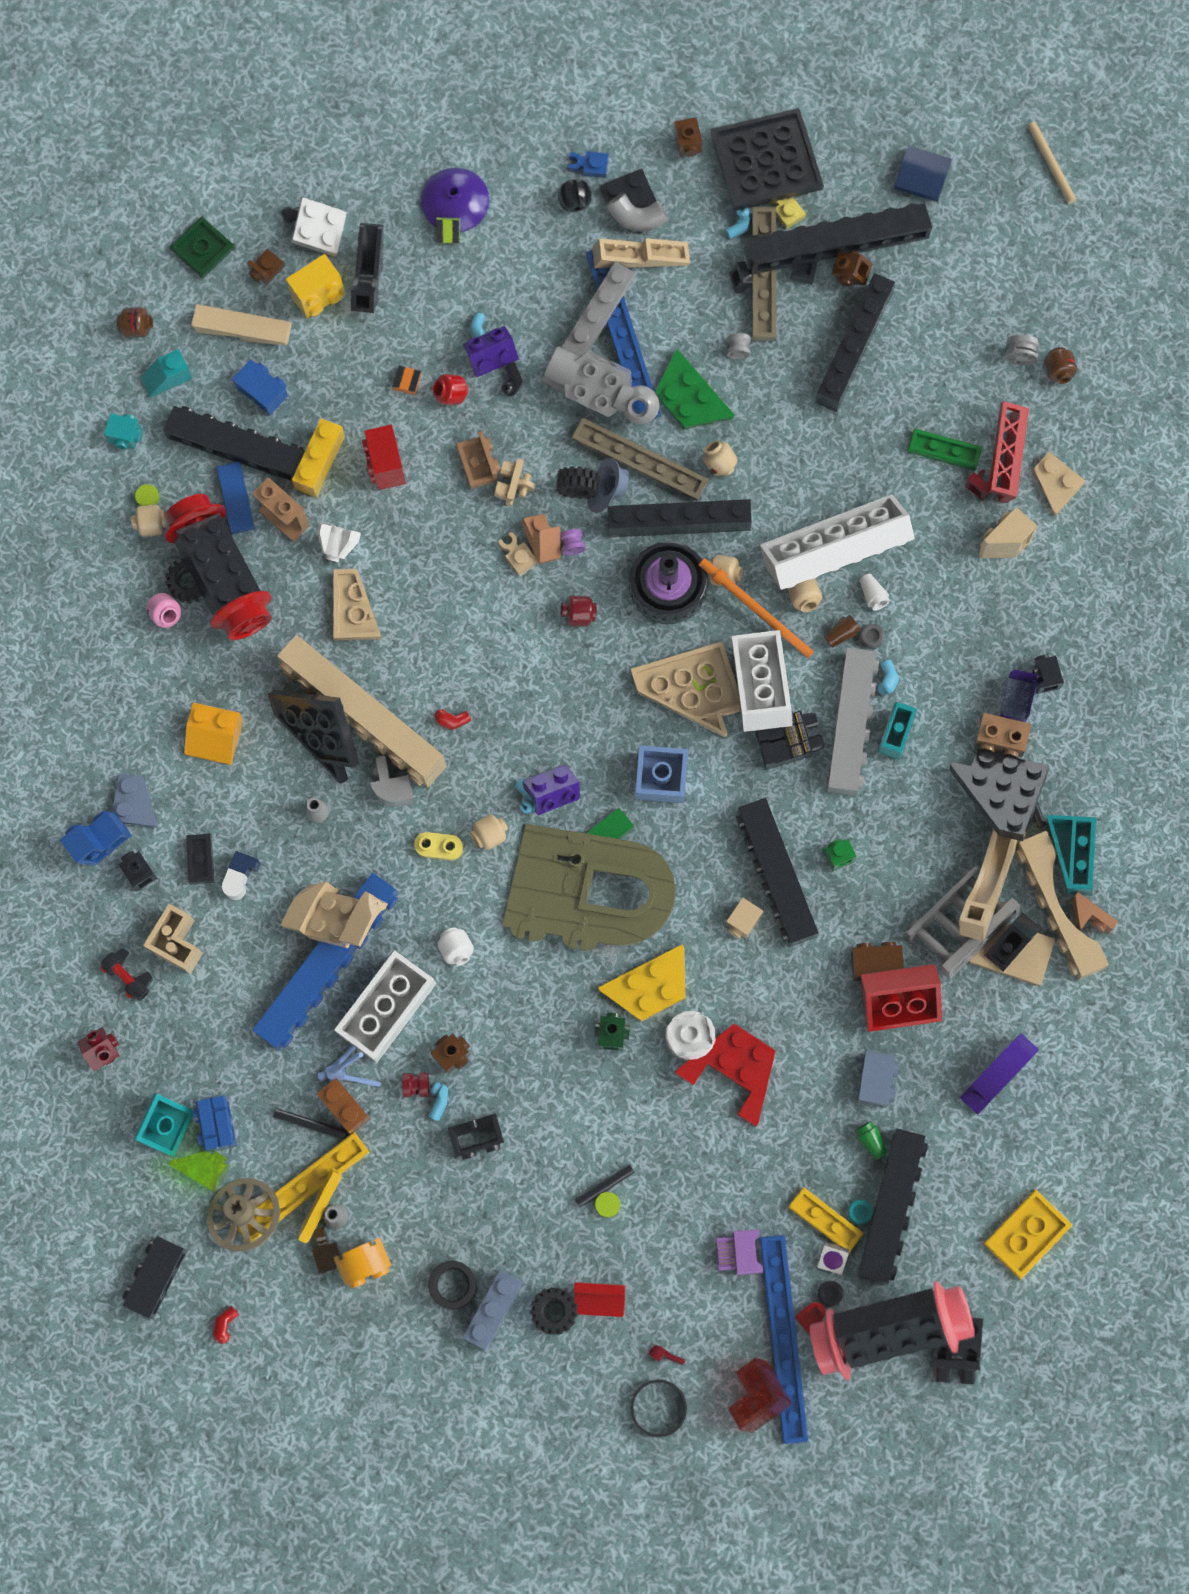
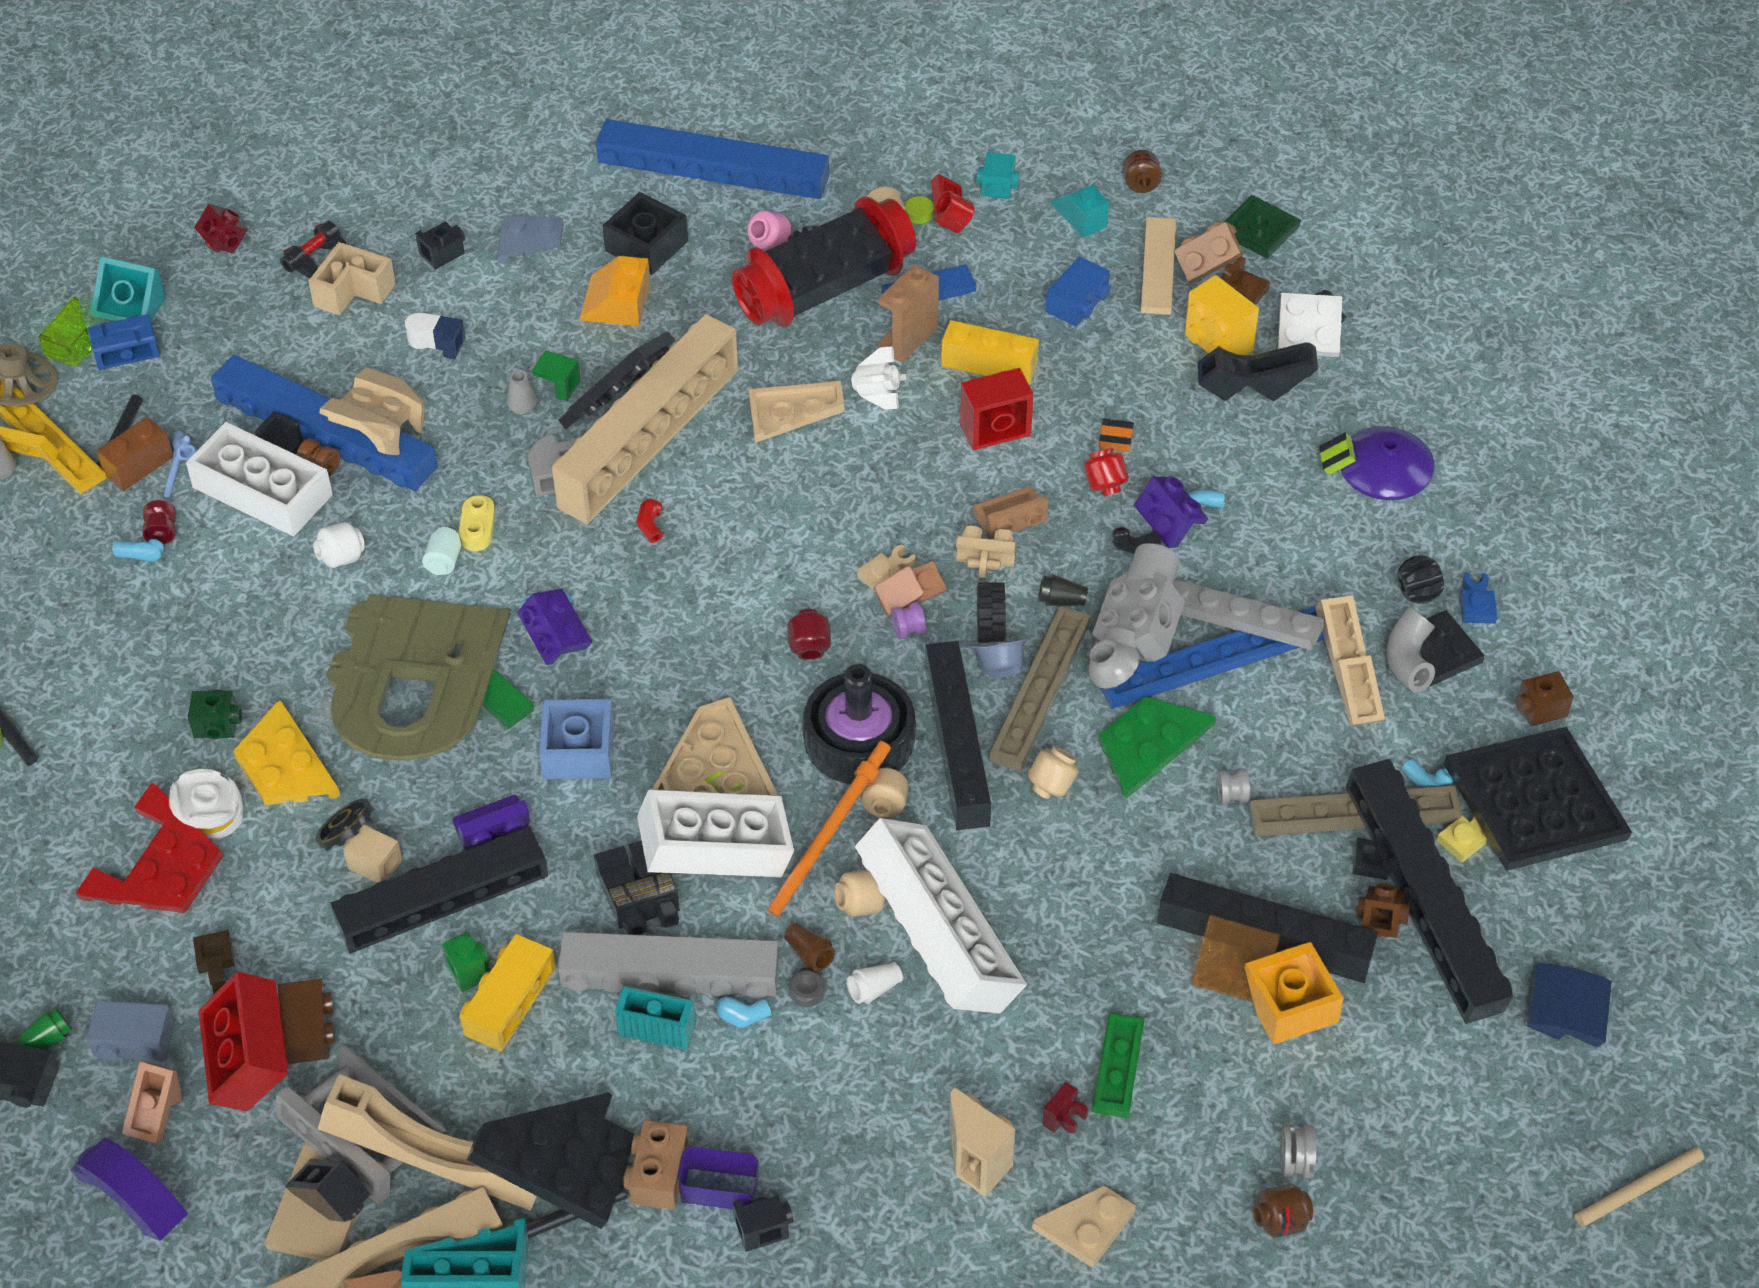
camera: 80 degrees right, 25 degrees down
(69, 651) = (713, 158): none -> blue brick
(99, 839) = (470, 195): blue brick -> none
(149, 472) = (950, 208): none -> red plate
(155, 705) = (646, 231): none -> black brick
(200, 859) = (456, 298): black plate -> none
(233, 443) = (1001, 267): black brick -> none
(237, 285) = (1209, 251): none -> medium nougat bracket
(298, 780) = (561, 371): none -> green panel
(341, 994) = (281, 432): none -> black panel
(365, 959) = (325, 457): none -> dark orange wheel
(444, 1046) = (195, 549): reddish brown brick -> none
(469, 870) = (442, 551): none -> light aqua brick
(472, 1126) = (78, 569): black window -> none
(488, 832) = (492, 564): tan head -> none
(555, 436) = (1061, 592): none -> pearl dark grey cone
(719, 937) = (344, 824): none -> black wheel
(725, 835) = (491, 821): none -> dark purple bracket
(740, 277) = (1336, 781): black plate -> none
(816, 1025) = (213, 955): none -> dark brown plate
(864, 828) = (507, 992): none -> yellow brick
(880, 364) = (1224, 954): none -> clear orange tile
(910, 332) = (1293, 993): none -> light orange slope
(938, 1061) = (152, 1096): none -> nougat slope
(1013, 451) = (1122, 1152): fence -> none

